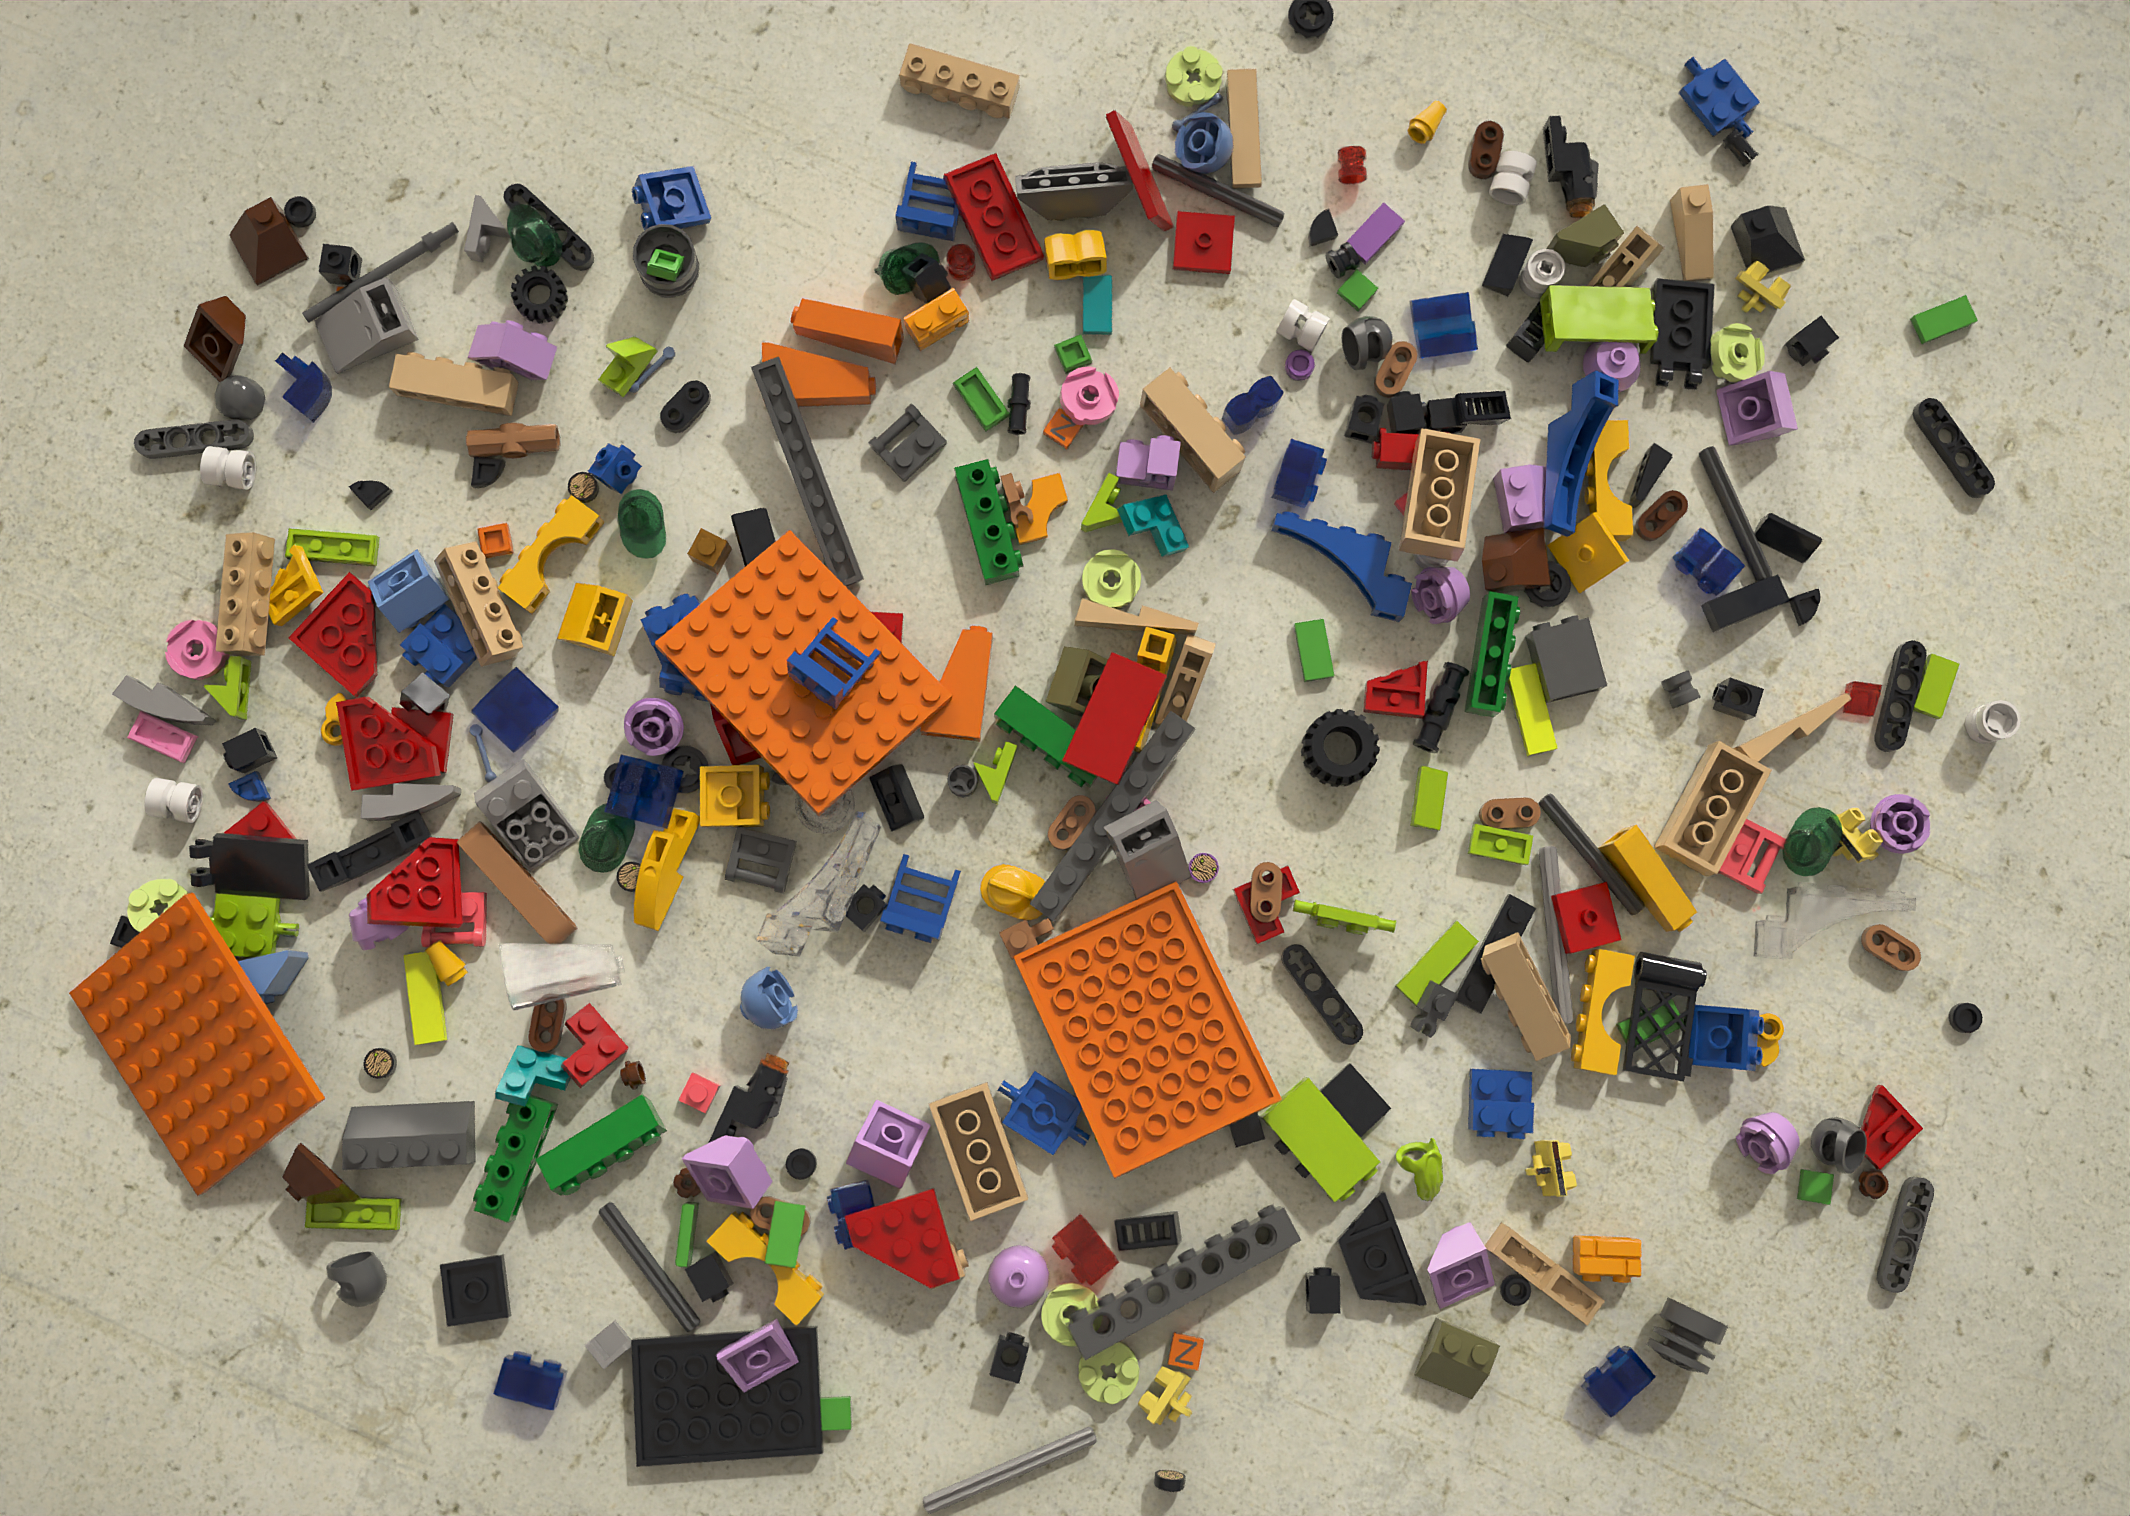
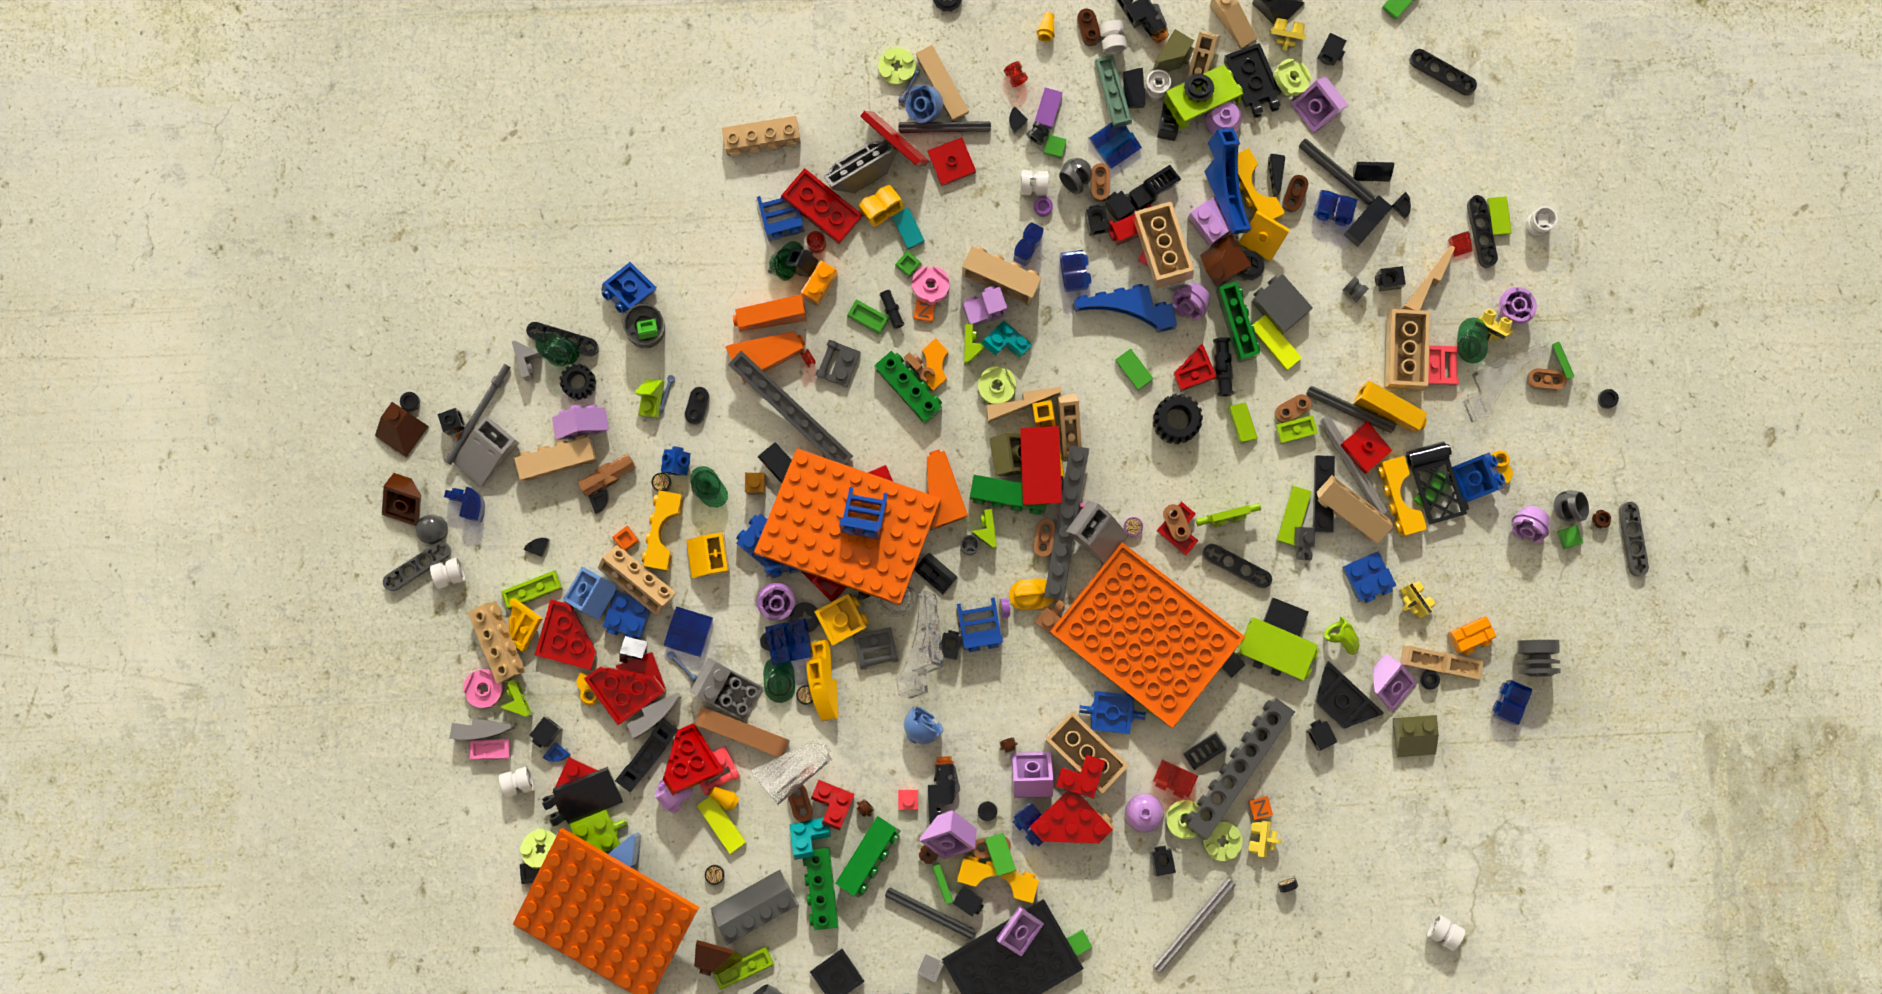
camera: 20 degrees left, 0 degrees up
(869, 414) = (808, 358): none -> clear red bush
(876, 1085) = (1008, 744): none -> reddish brown plate
(954, 1192) = (1086, 781): none -> red plate
(967, 892) = (1004, 606): none -> medium lavender tile
(1475, 253) = (1113, 91): none -> sand green tile
(1597, 291) = (1195, 81): none -> black gear
(1887, 1127) = (1594, 483): red wing -> none
(1927, 932) = (1563, 360): none -> bright green tile

